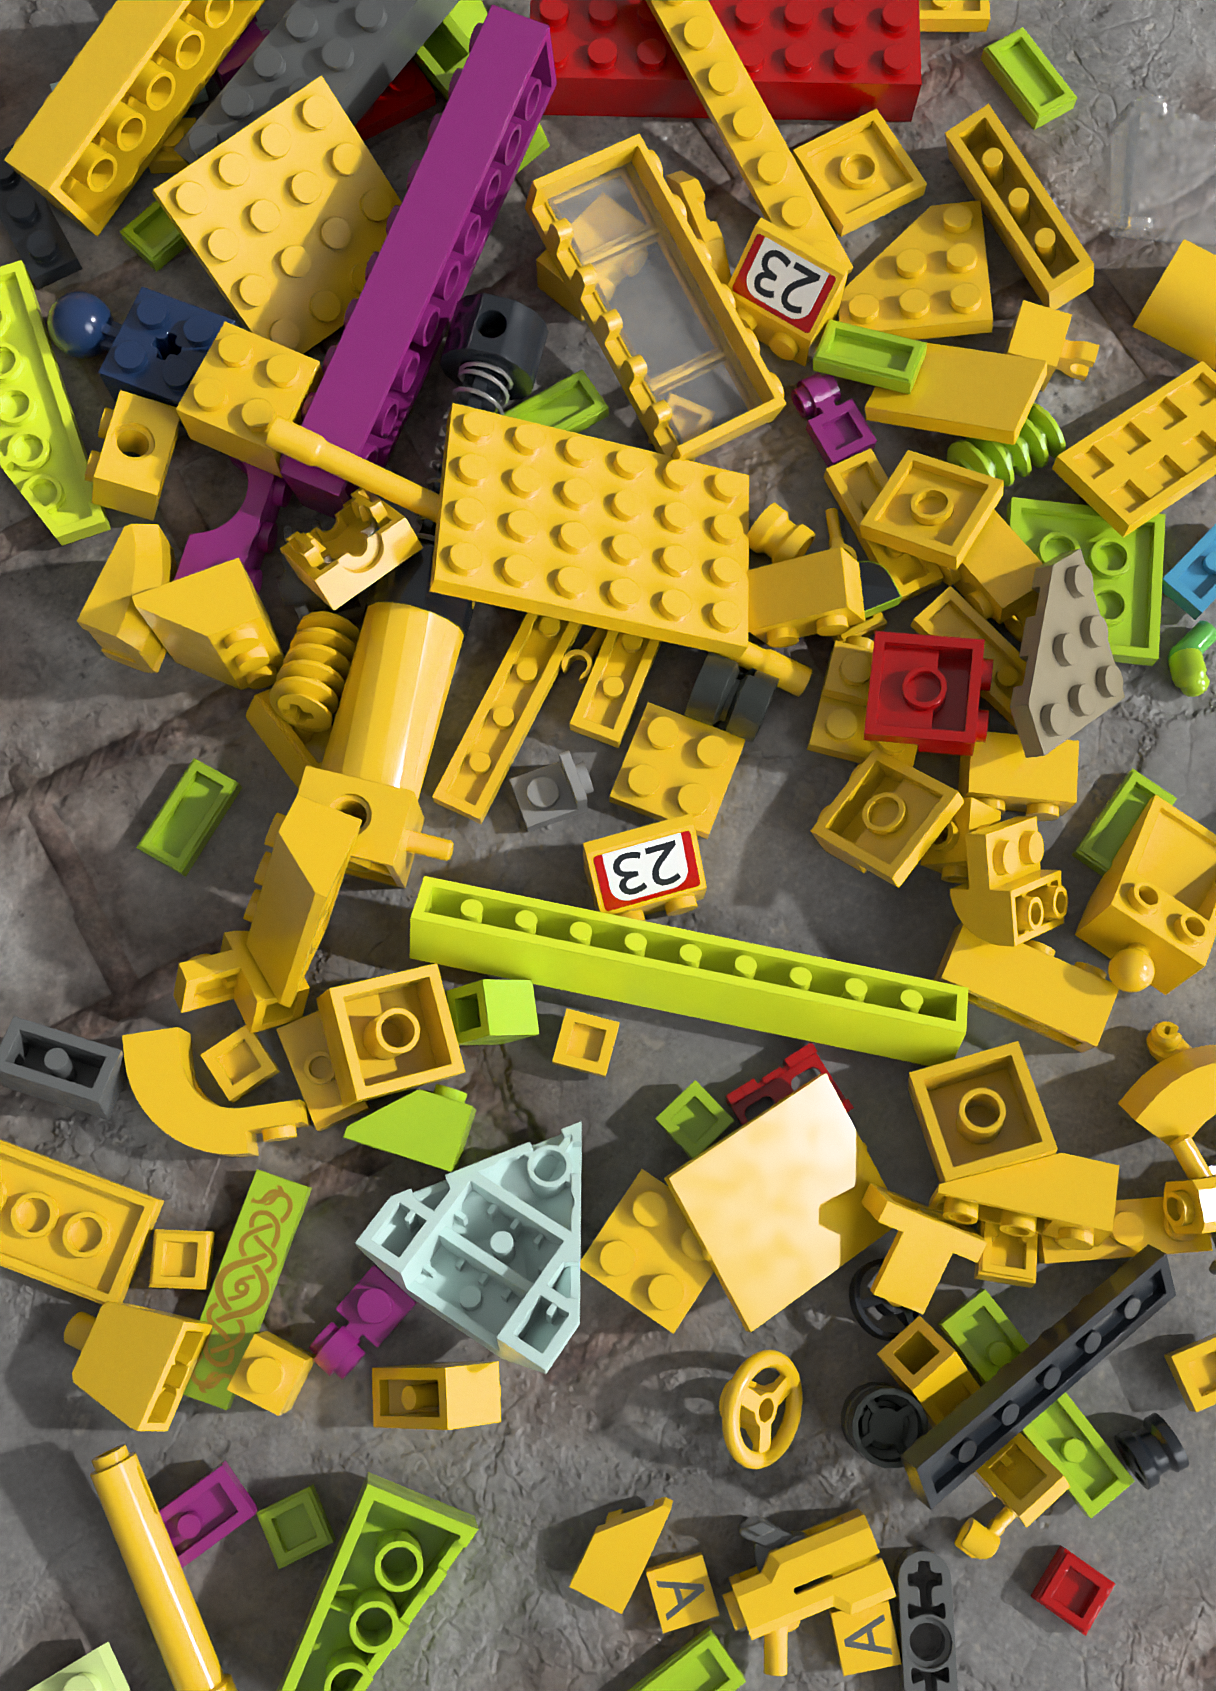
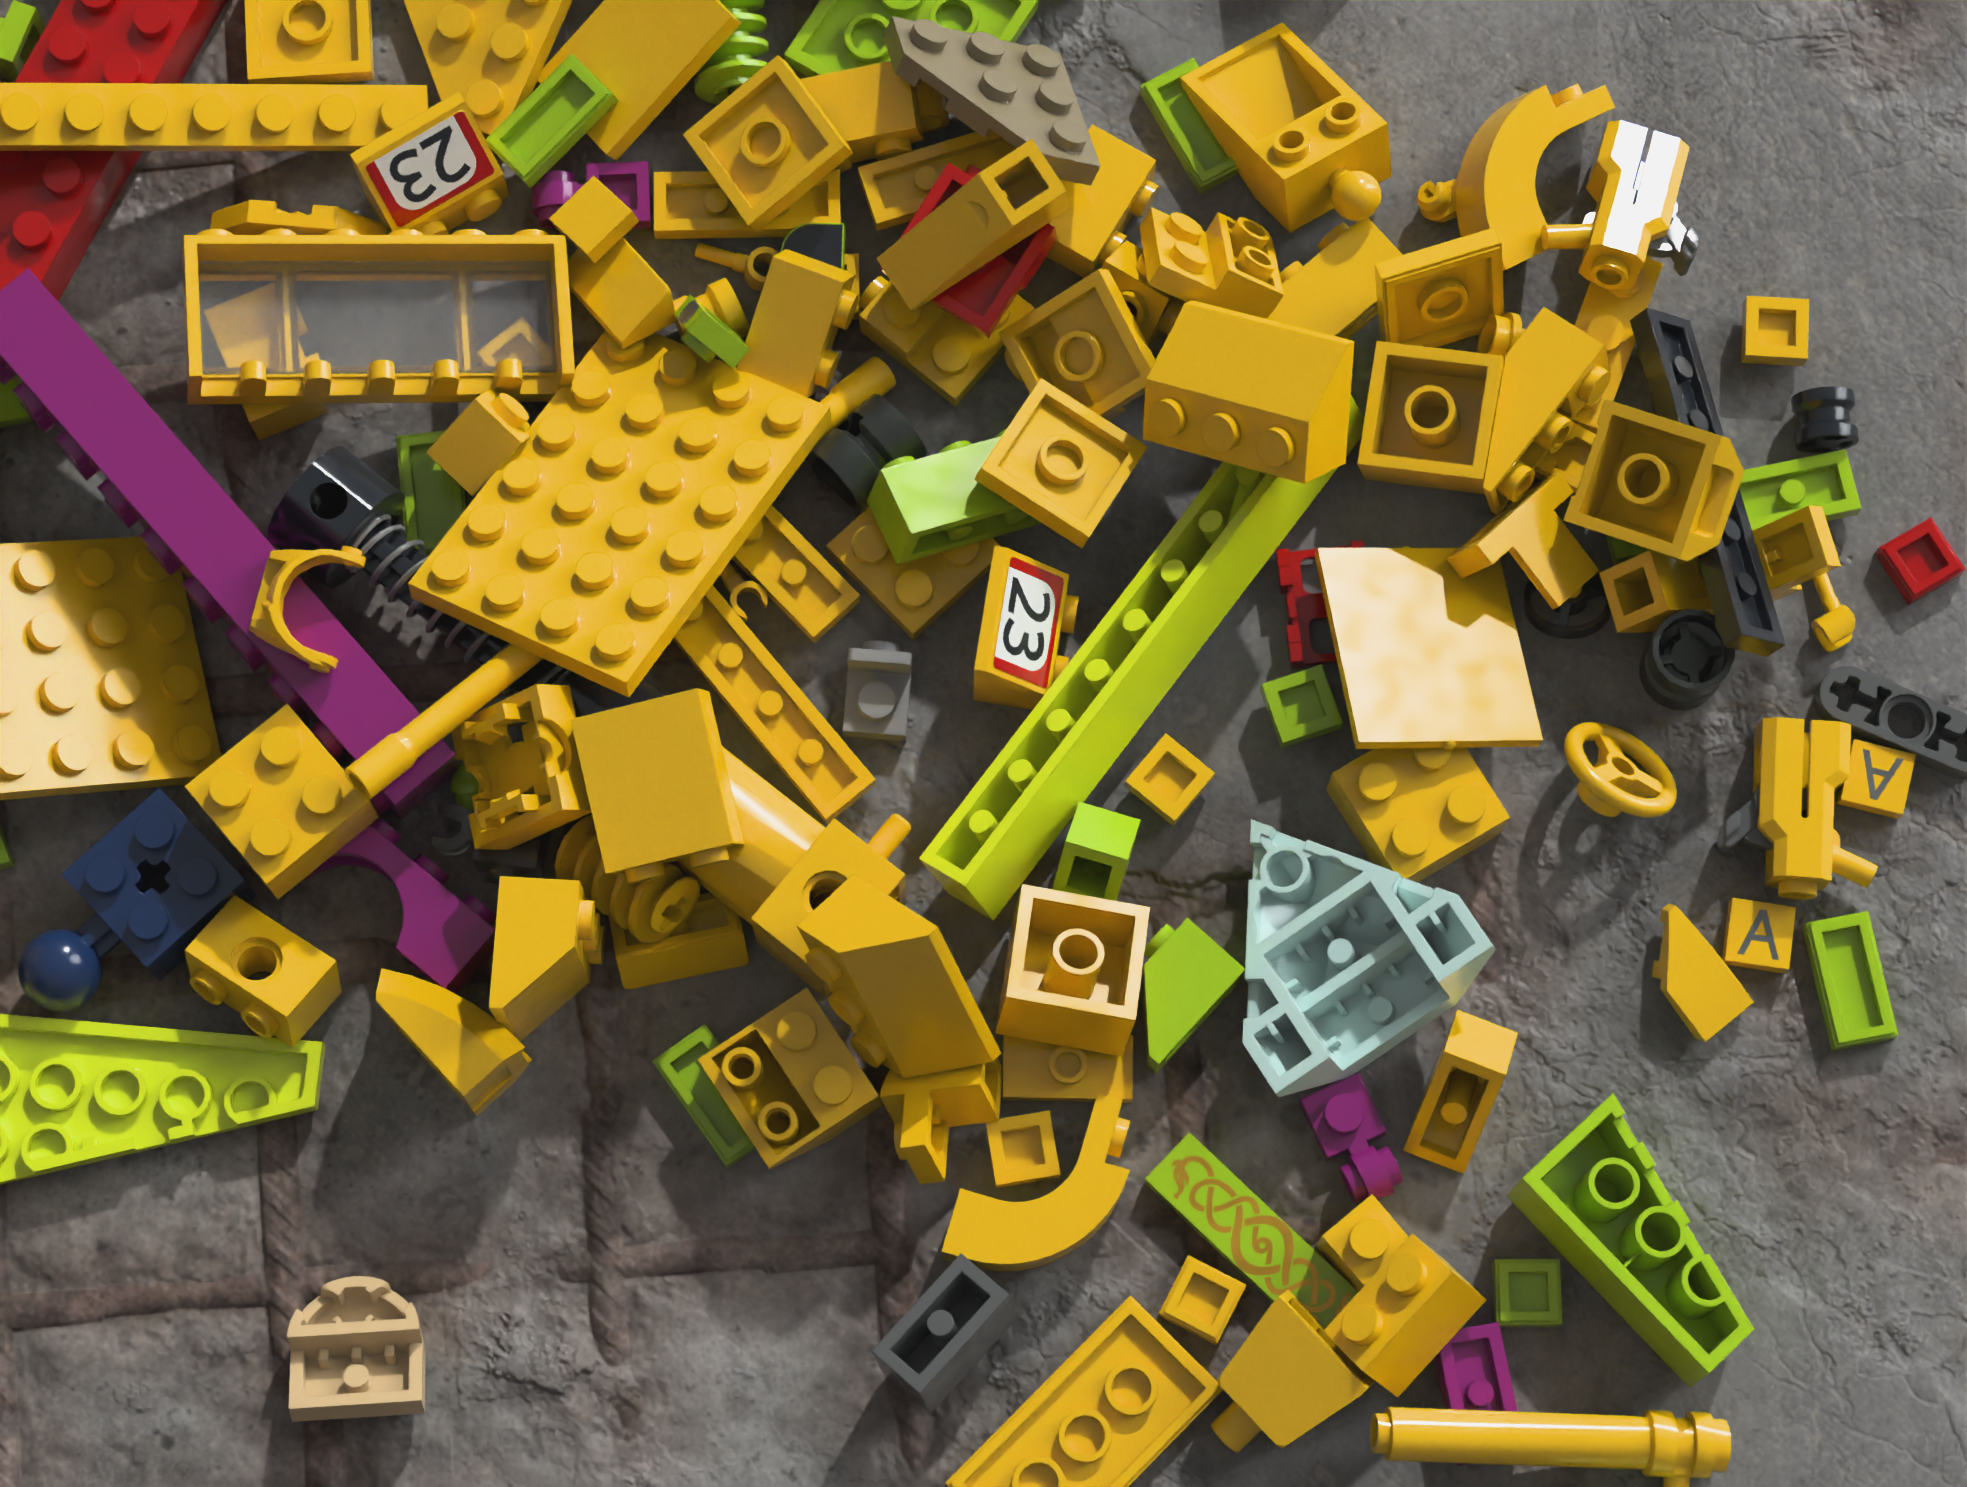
camera: 65 degrees left, 0 degrees up
(206, 860) = (790, 1080): none -> yellow slope
(218, 1433) = (1404, 1315): none -> yellow brick
(372, 646) = (658, 785): none -> yellow brick
(380, 310) = (279, 573): none -> yellow helmet
(600, 413) = (481, 439): none -> yellow brick
(737, 785) = (937, 503): none -> lime brick
(760, 534) = (708, 334): none -> lime plate
(766, 462) = (622, 293): none -> yellow slope
(788, 837) = (1061, 463): none -> yellow plate
(809, 419) = (594, 219): none -> yellow tile
(916, 957) = (1251, 393): none -> yellow slope
(944, 679) = (976, 225): none -> yellow slope
(1014, 1332) = (1656, 483): none -> yellow slope
(1078, 1141) = (1499, 334): none -> yellow plate
(1088, 1076) = (1440, 291): none -> yellow tile

